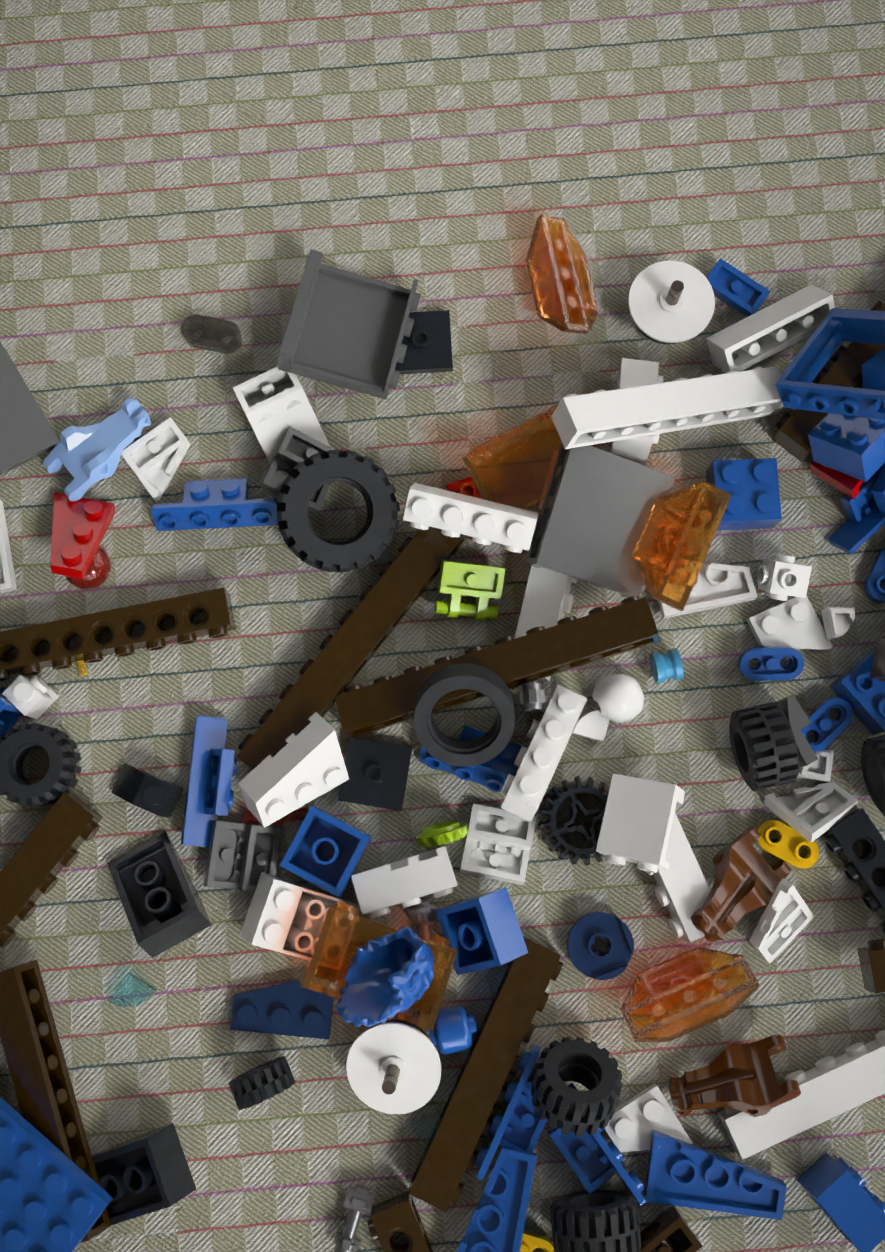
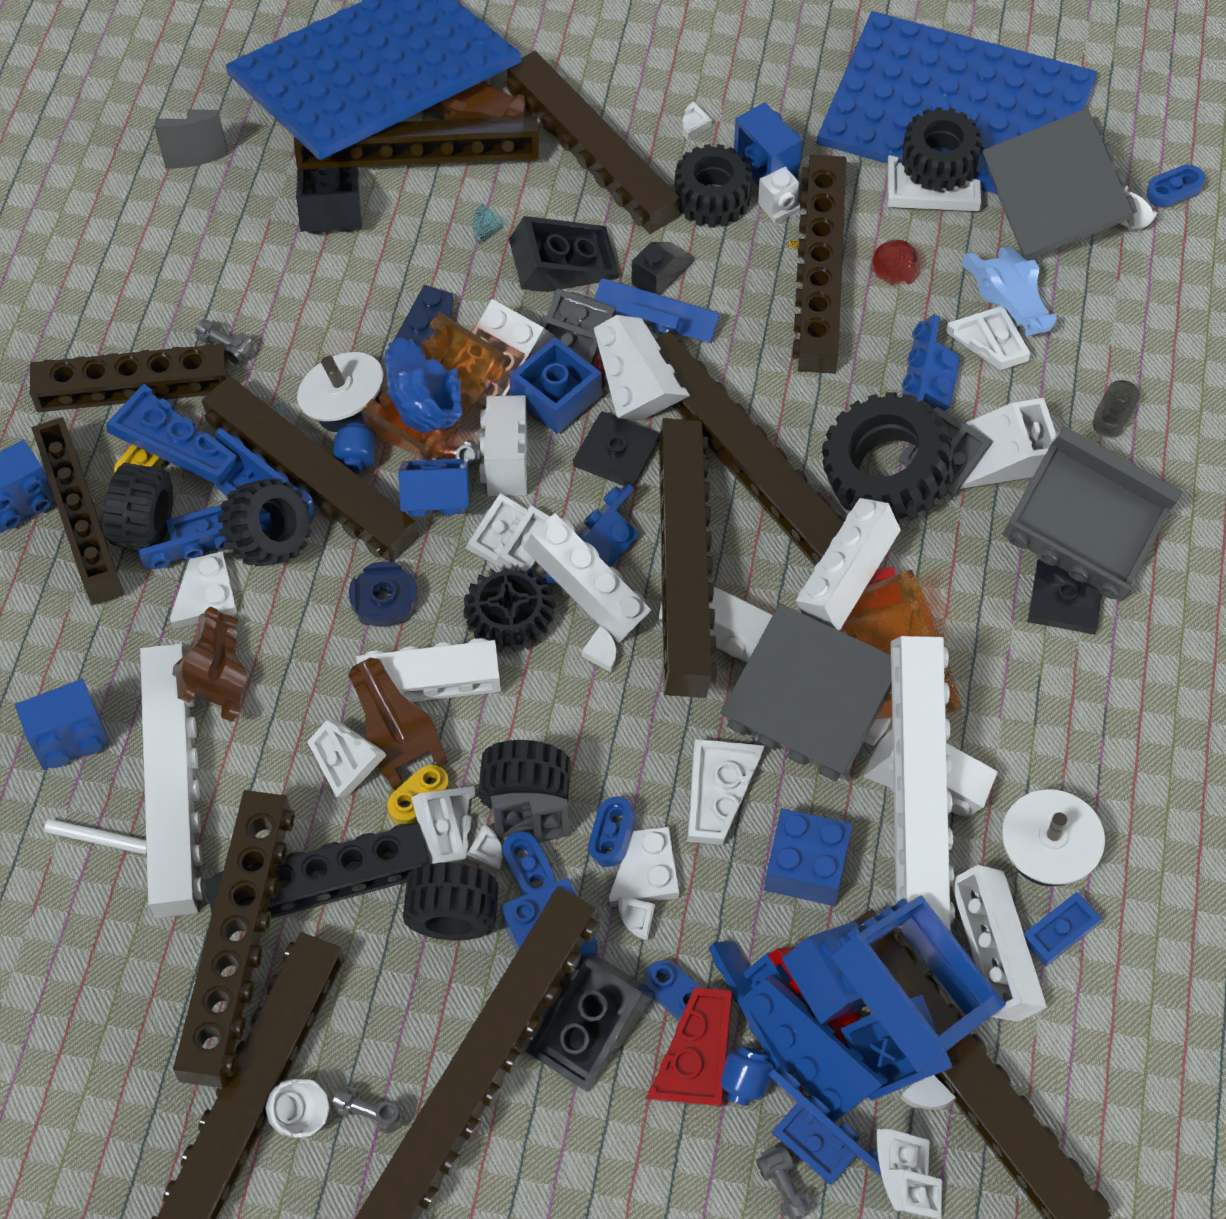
camera: 105 degrees right, 20 degrees down
(77, 533) = (926, 253): red wing -> none
(261, 1083) = (368, 291): black tyre -> none
(442, 833) = (538, 481): lime gear -> none
(464, 751) = (663, 523): black tyre -> none
(469, 580) = (784, 568): lime plate -> none
(531, 697) = (646, 578): flat silver bar -> none
(560, 277) = (1107, 745): clear orange wedge -> none
(619, 697) = (622, 675): white hair -> none
(638, 822) = (491, 636): white panel -> none
(666, 666) = (640, 728): dark azure wheel -> none
(678, 541) = (765, 751): clear orange wedge -> none
(686, 994) = (308, 643): clear orange wedge -> none
(703, 1180) = (133, 622): blue wing -> none
(783, 577) = (701, 866): white brick -> none

